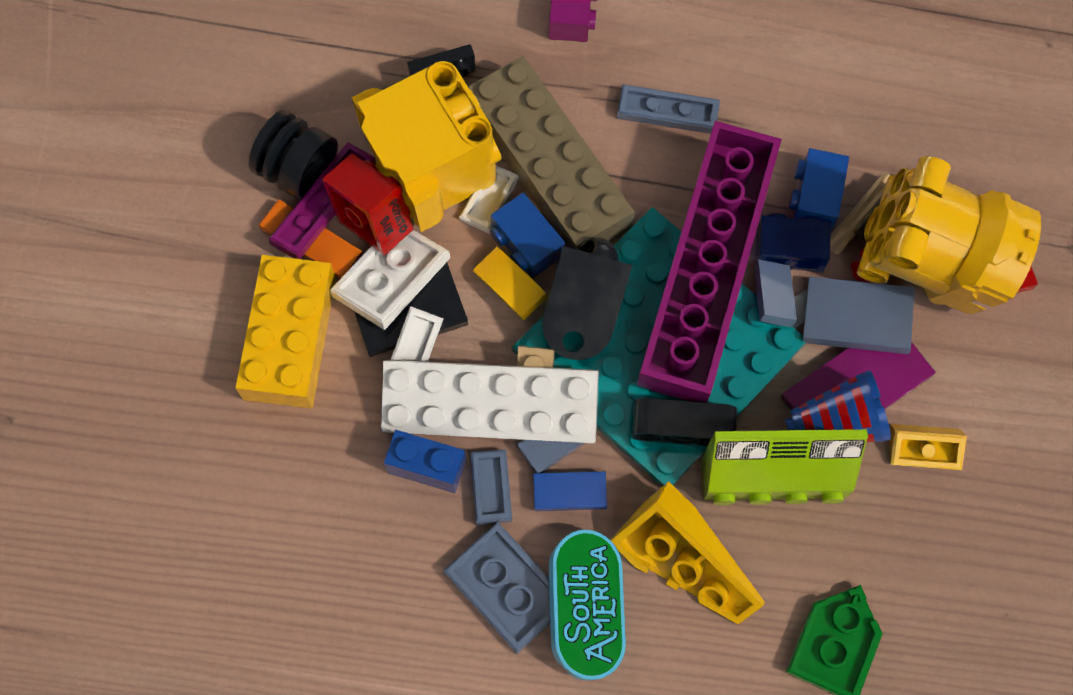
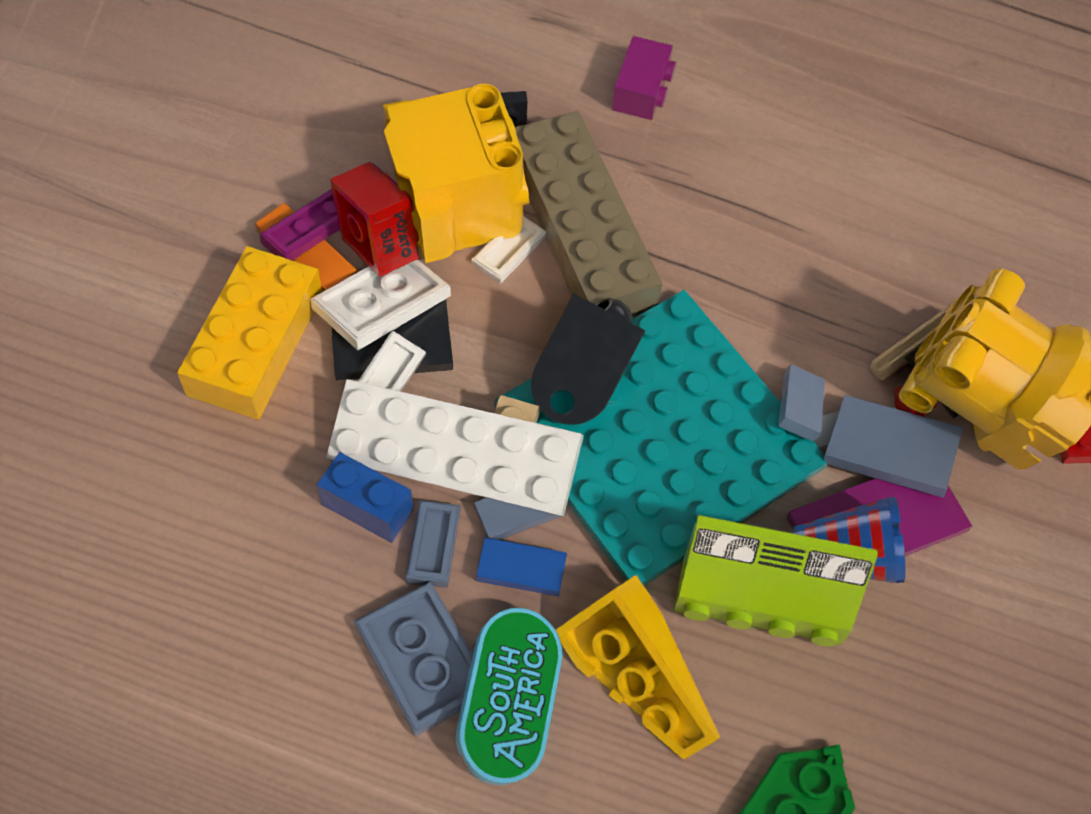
camera: 10 degrees right, 10 degrees down
(291, 153) = (305, 154): black wheel -> none
(510, 283) = (509, 333): yellow slope -> none
(526, 235) = (537, 288): blue brick -> none
(667, 109) = (723, 199): sand blue tile -> none
(680, 421) = (659, 509): black beam -> none
(709, 264) = (730, 354): magenta brick -> none
(794, 242) = (835, 354): clear blue brick -> none
(820, 185) = (874, 308): blue brick -> none
(927, 446) = (947, 607): yellow slope -> none

